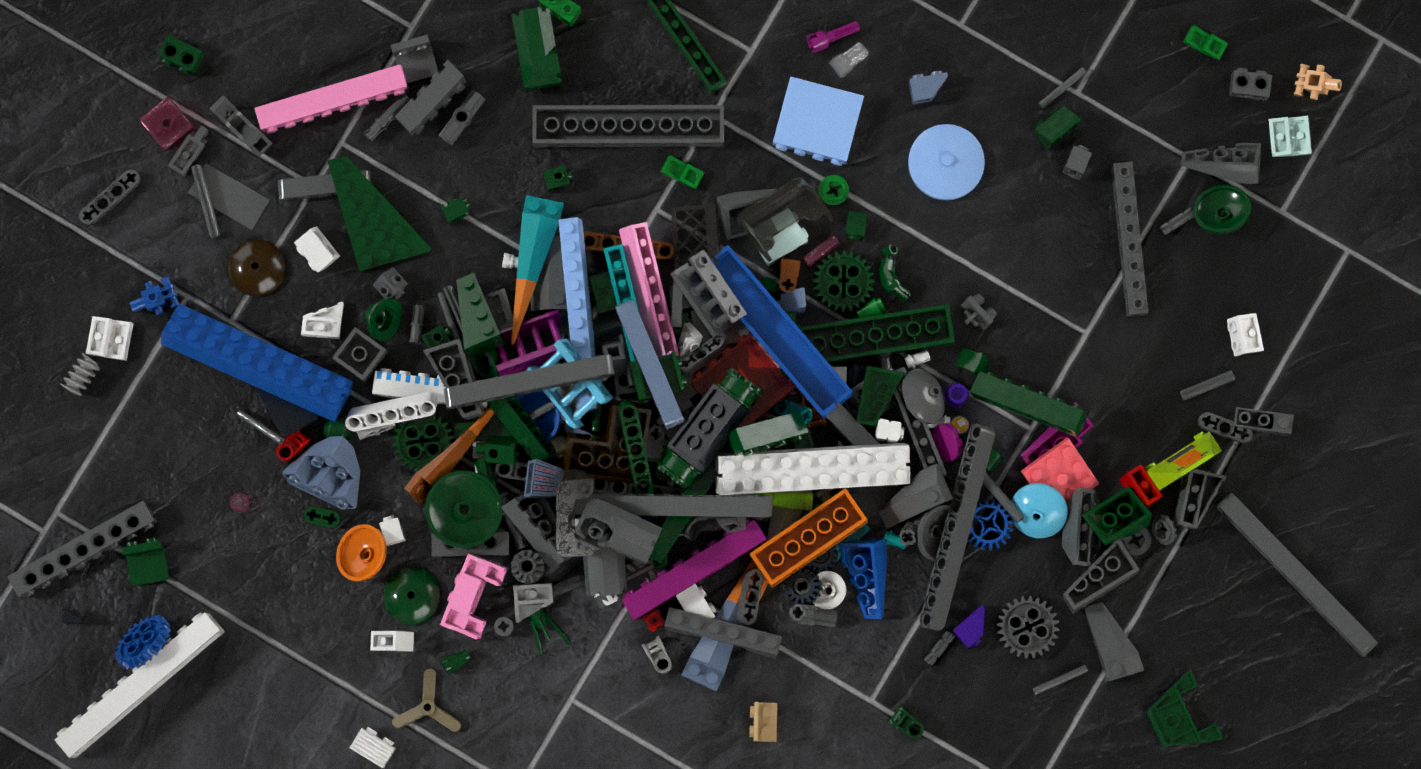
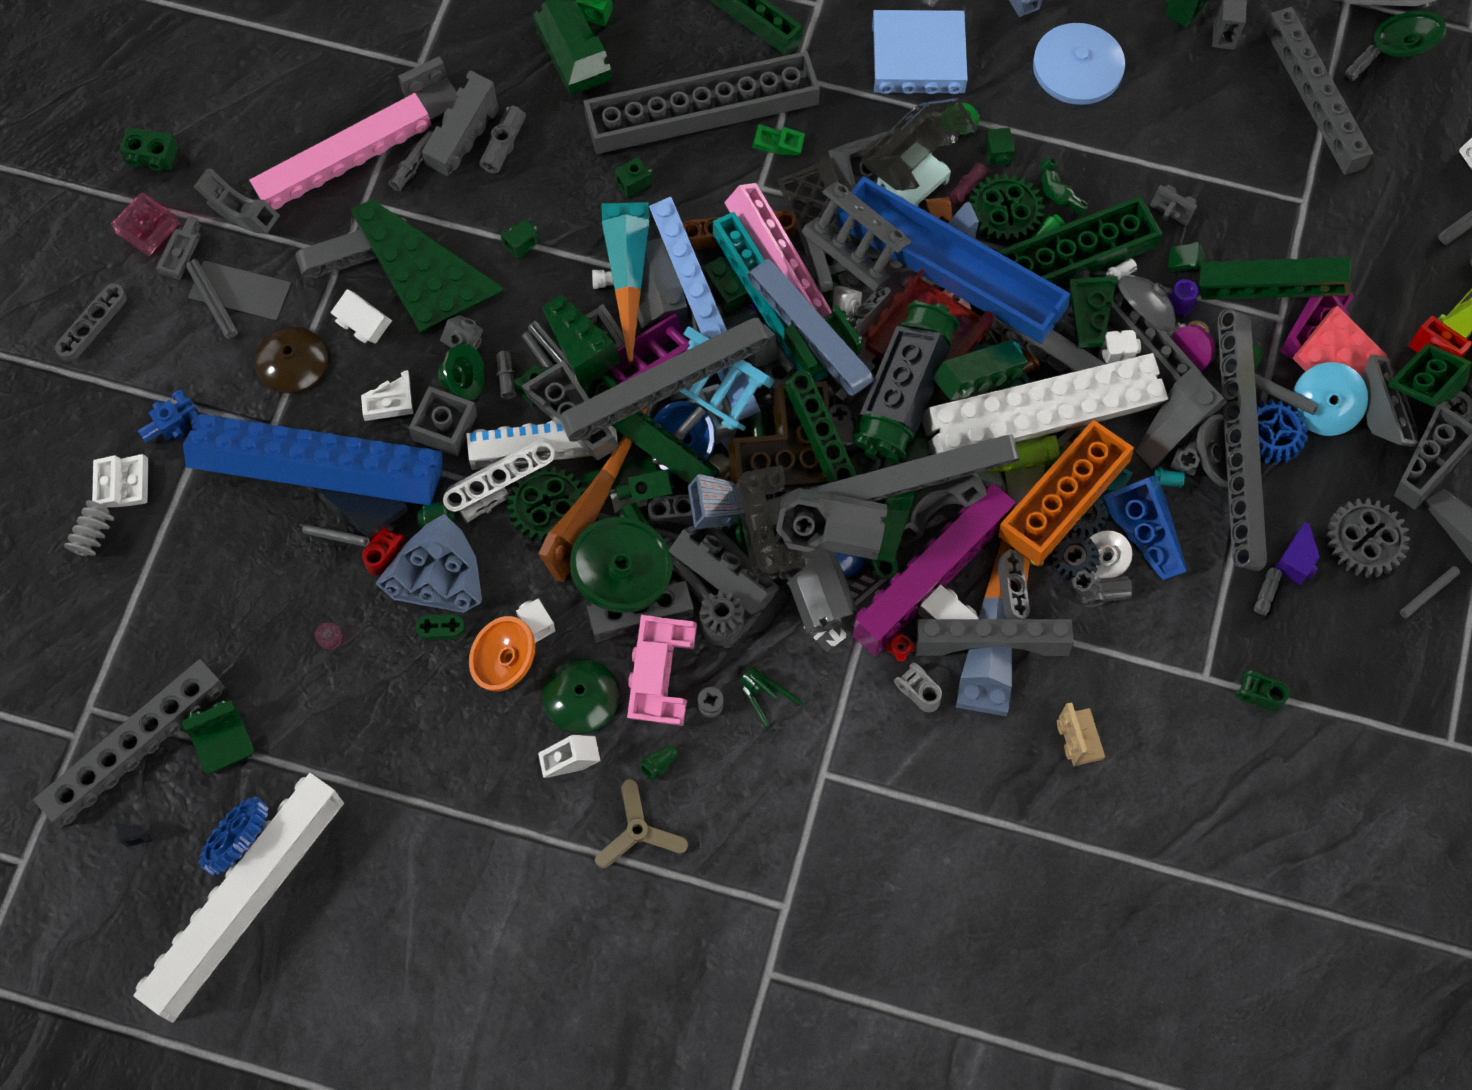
camera: 15 degrees left, 15 degrees down
(373, 747) = (578, 900): white brick -> none
(531, 598) = (735, 658): light grey wing -> none

